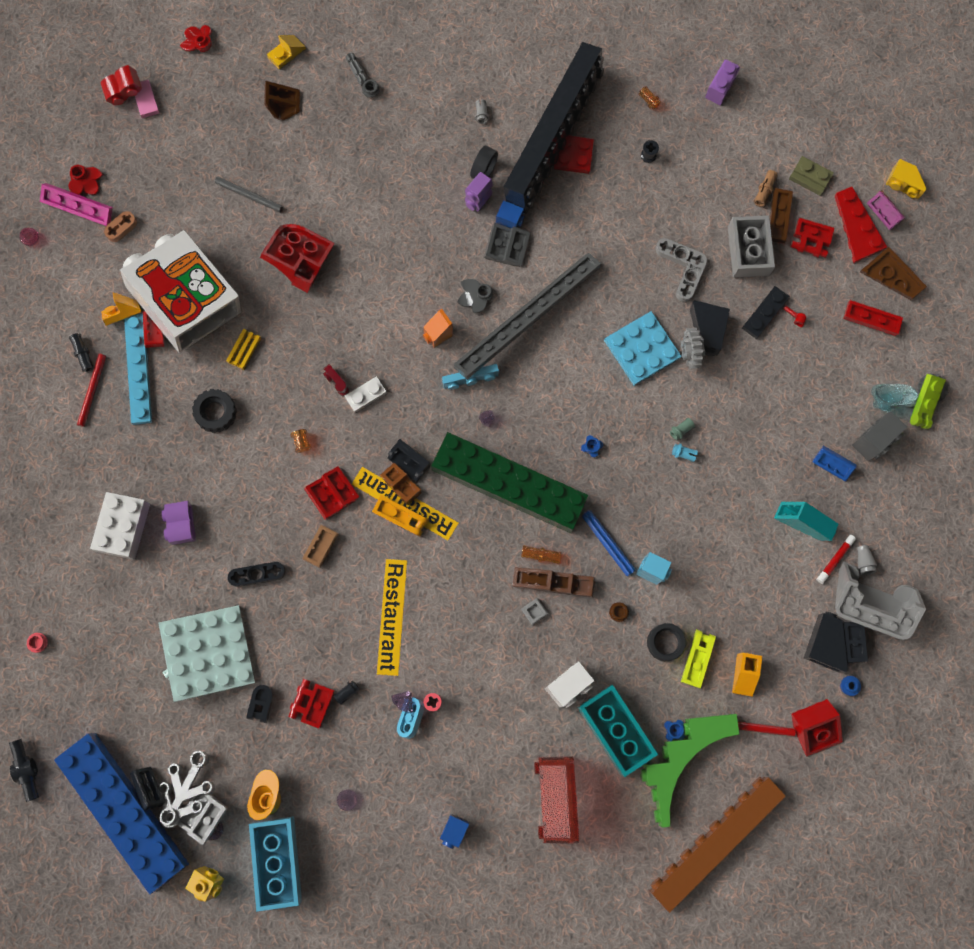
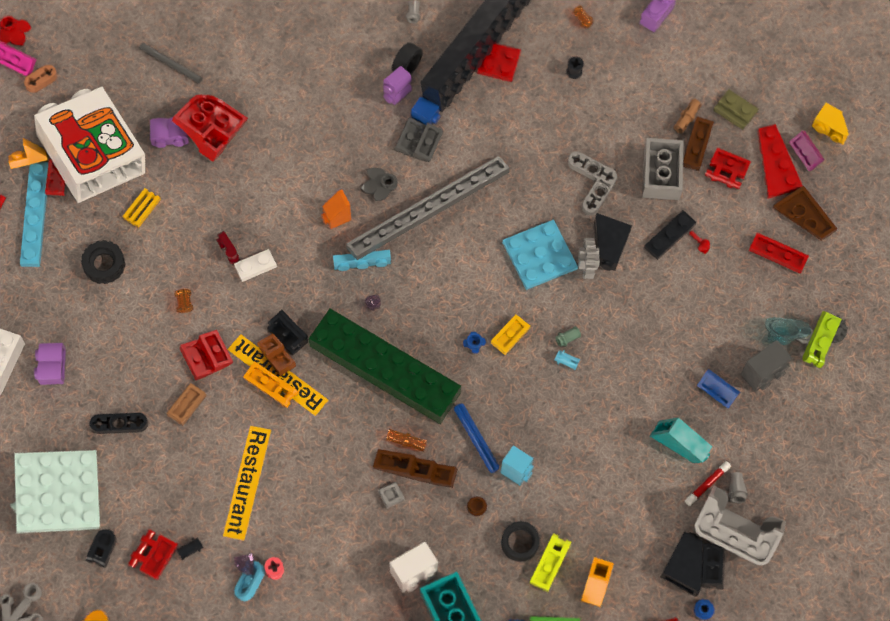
camera: 10 degrees right, 10 degrees down
(254, 269) = (165, 132): none -> medium lavender brick
(626, 434) = (510, 334): none -> yellow plate

